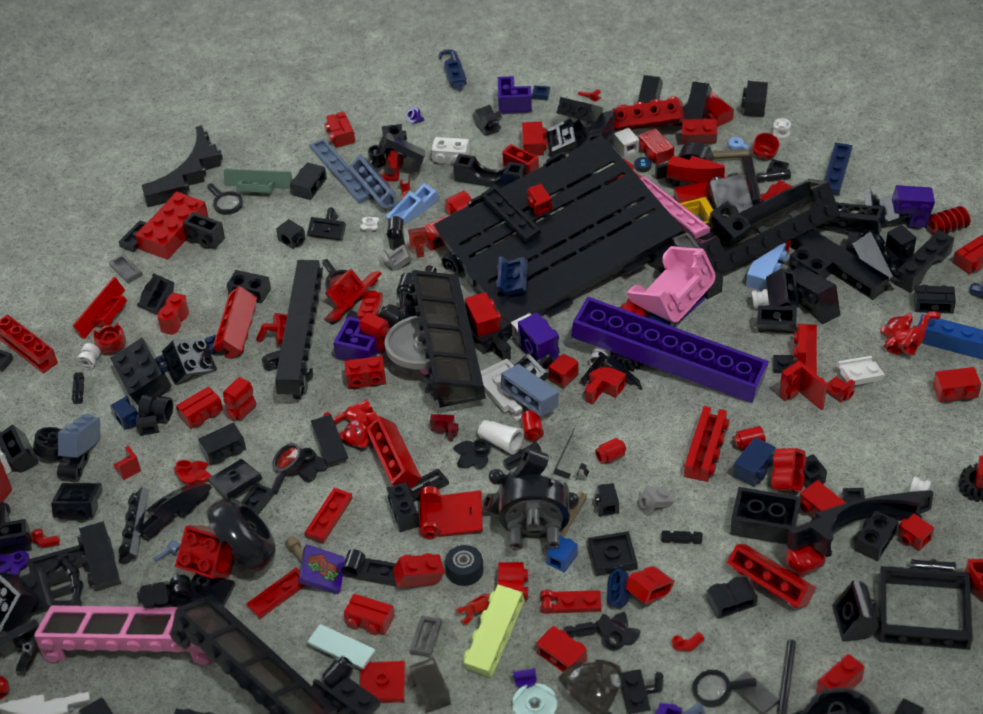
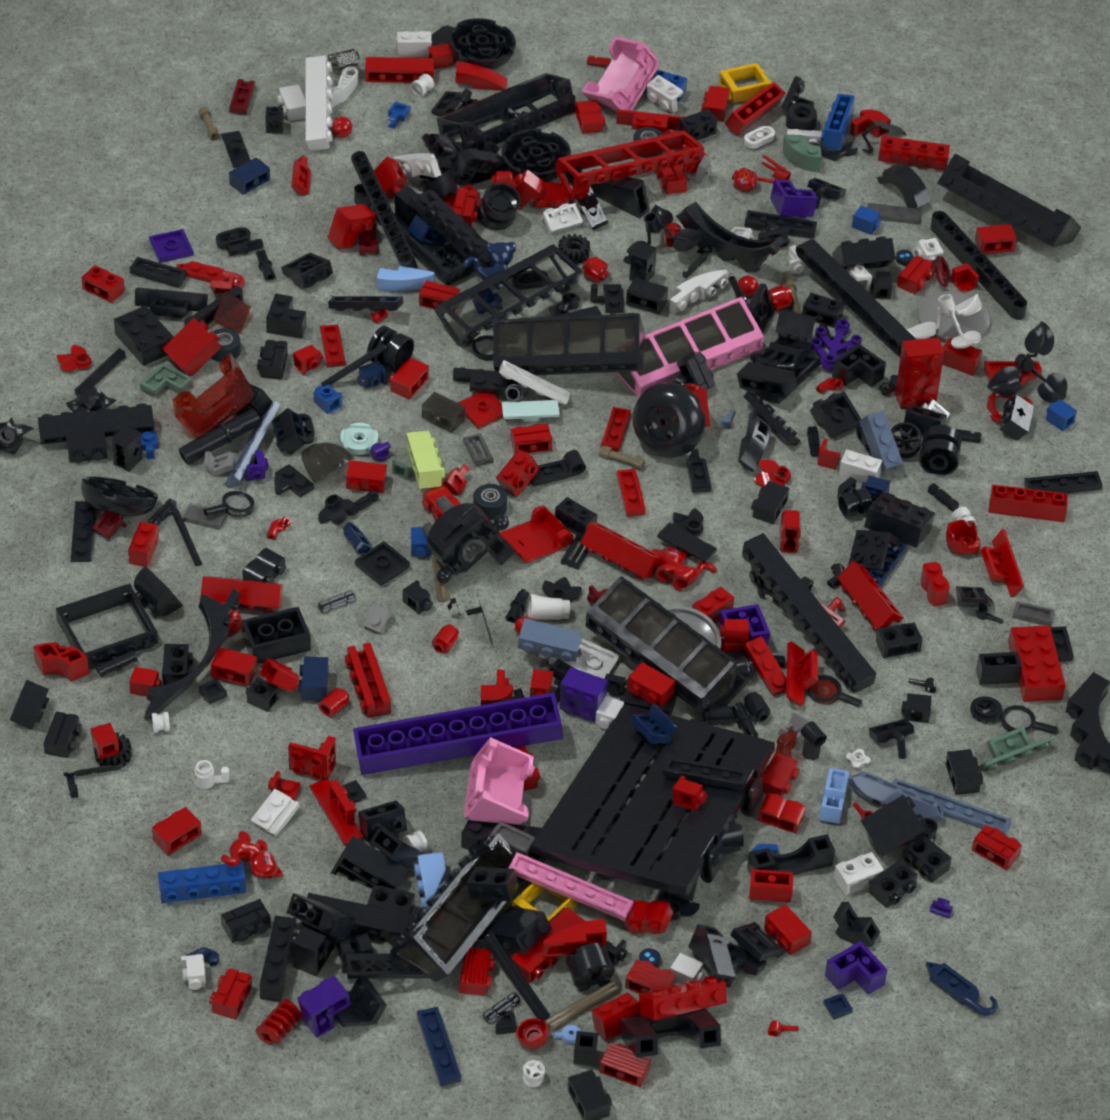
camera: 140 degrees right, 0 degrees up
(38, 410) = (940, 450): none -> black wheel
(115, 436) = (859, 466): none -> white brick
(121, 490) = (813, 441): none -> black axle
(199, 407) = (821, 521): red brick -> none
(235, 360) = (834, 581): none -> black arm
(235, 478) = (731, 483): black plate -> none
(247, 213) = (981, 703): none -> black gear
(261, 252) = (929, 684): none -> black hand
(285, 462) = (702, 512): black piece -> none
(316, 664) = (534, 382): none -> white plate
(321, 569) = (595, 448): dark purple tile -> none
(426, 134) = (893, 884): none -> black brick
(517, 645) = (402, 470): none -> sand green slope
(570, 601) = (388, 517): red plate -> none
(578, 109) = (767, 992): black window -> none
(649, 584) = (332, 544): red brick -> none
(736, 121) = (585, 1048): none -> black brick
(904, 424) = (205, 775): none -> white piece

